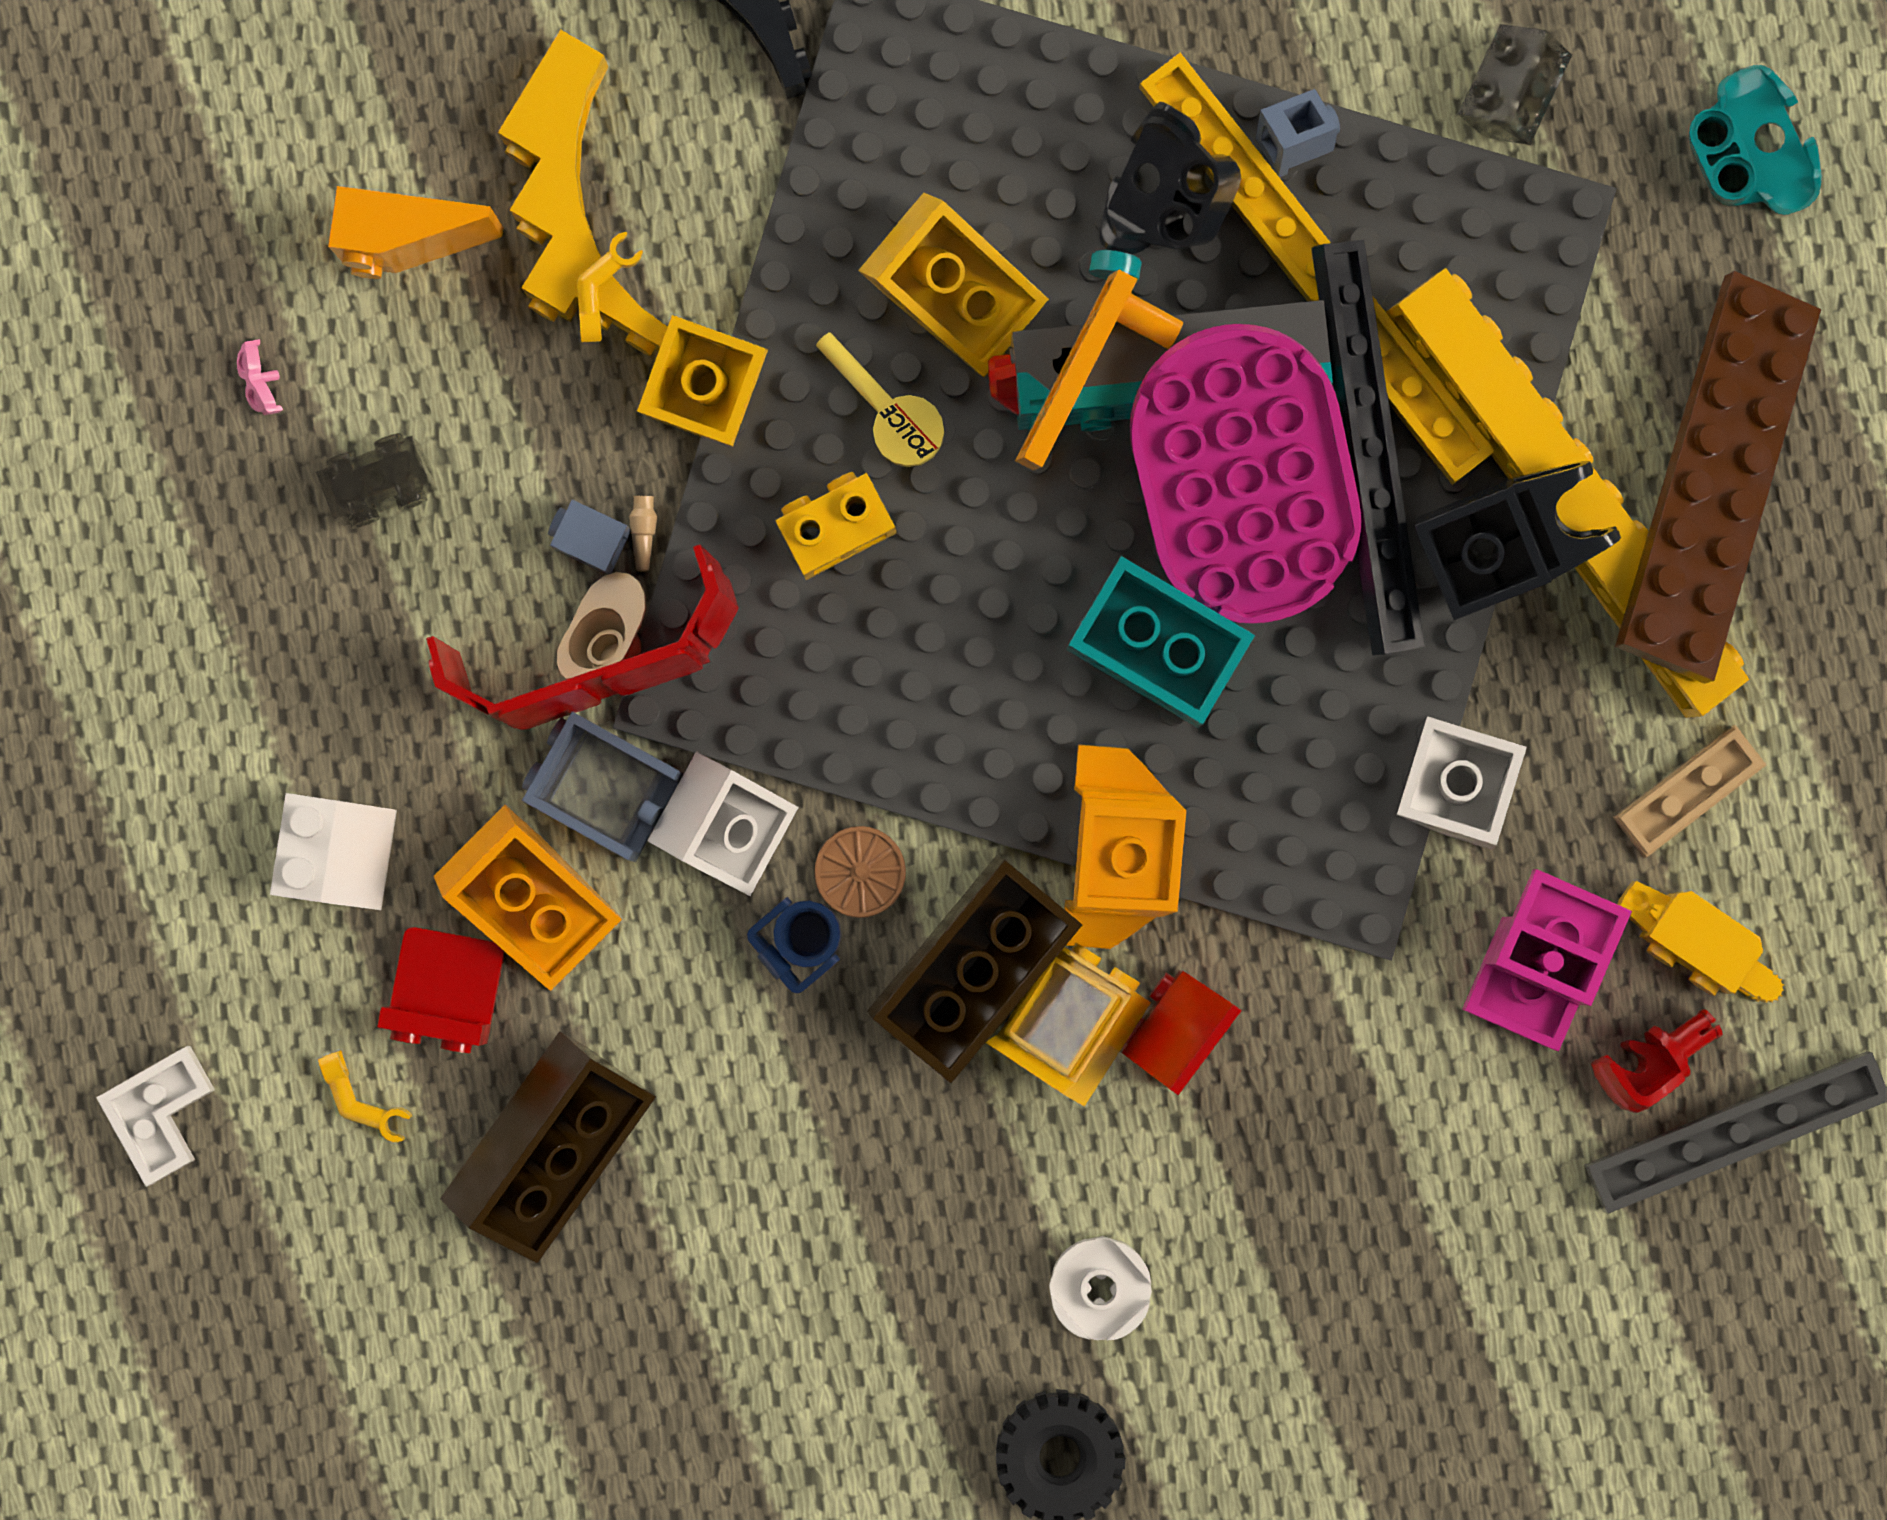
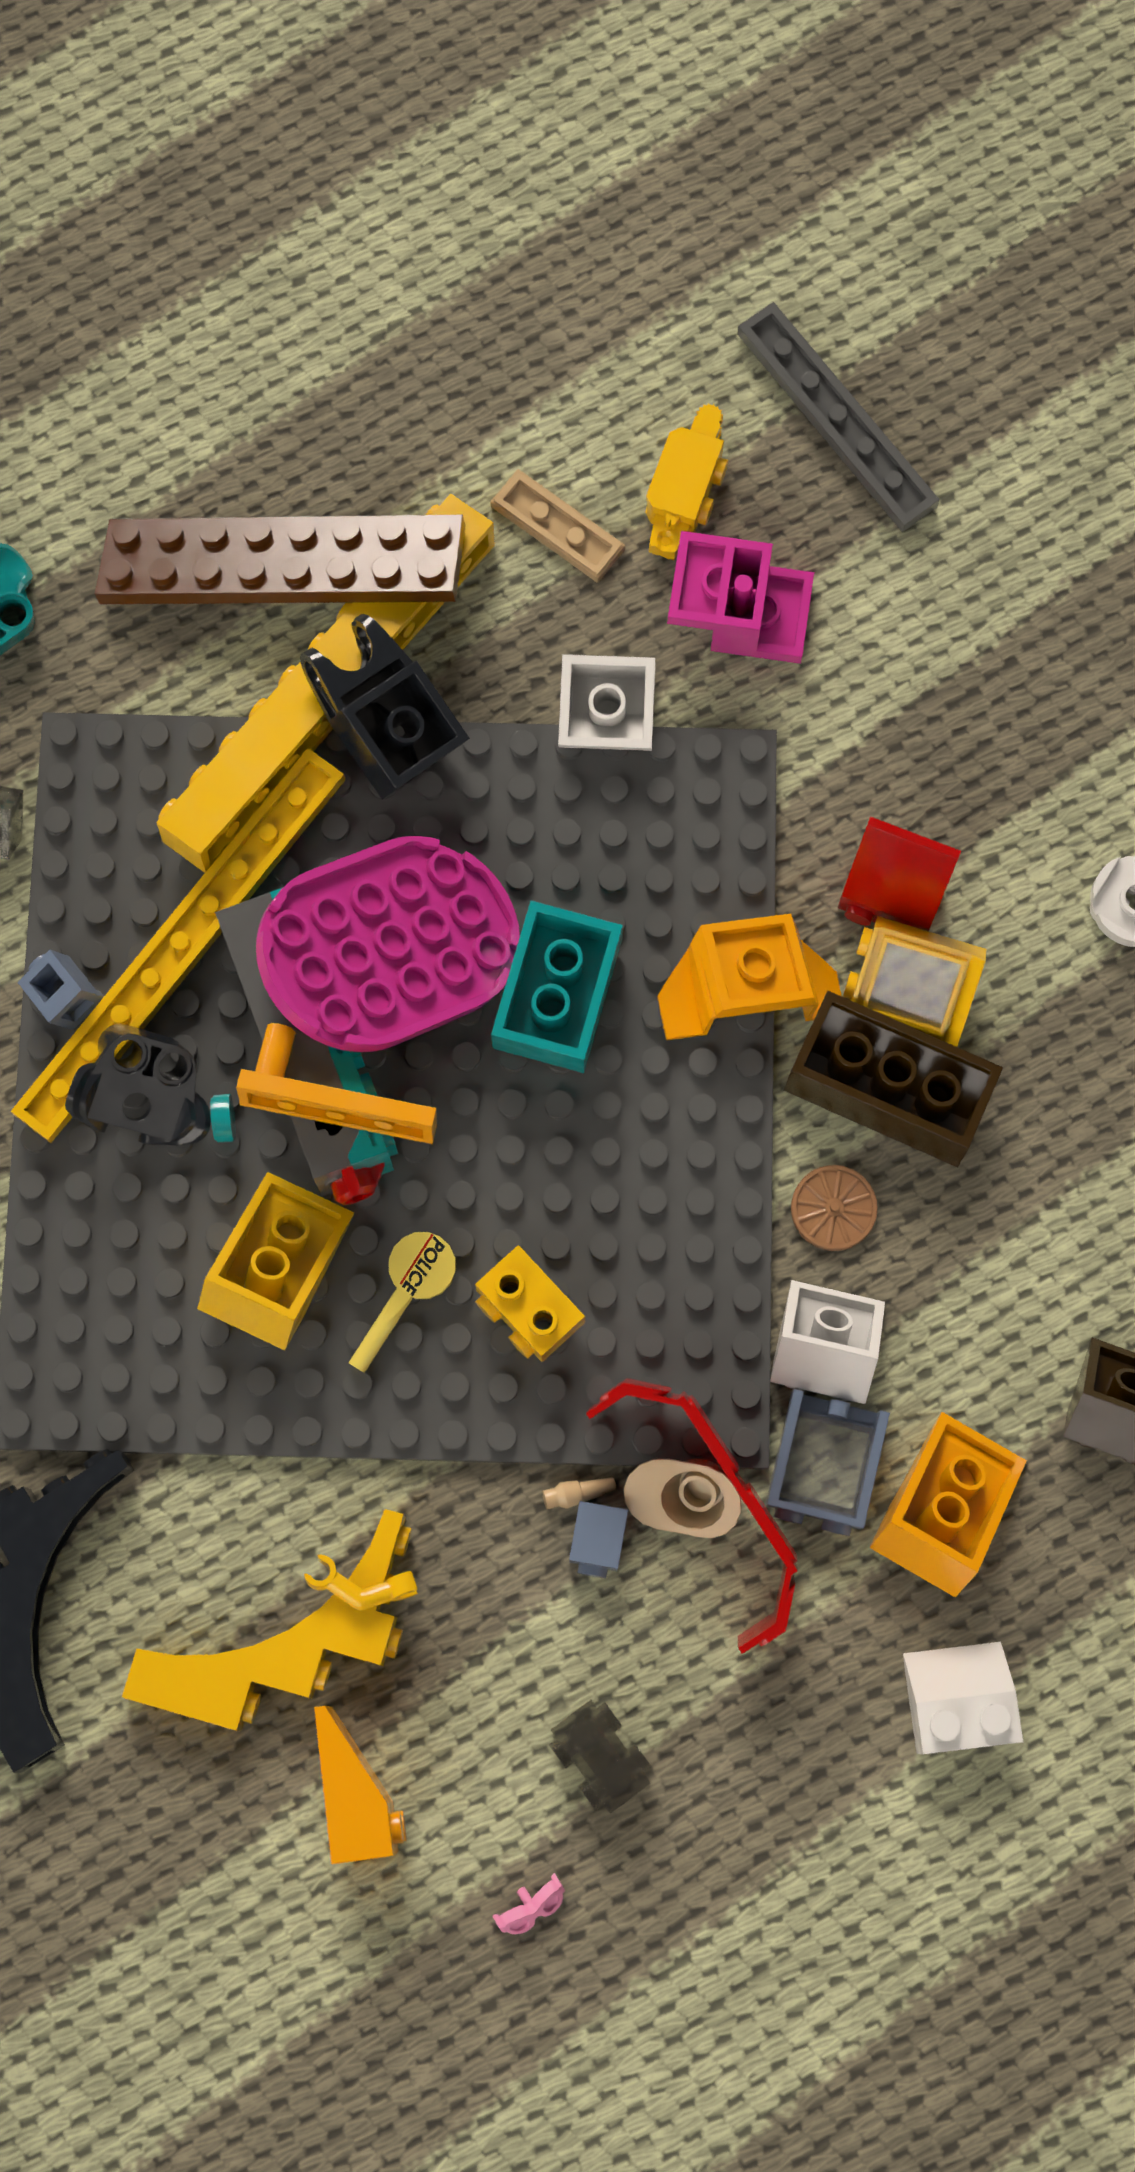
camera: 105 degrees left, 10 degrees down
(443, 989) = (1058, 1557): red bracket -> none
(702, 381) = (426, 1463): yellow slope -> none
(804, 936) = (909, 1235): dark blue piece -> none
(1365, 413) = (424, 815): black plate -> none
(1660, 1066) = (801, 489): red piece -> none

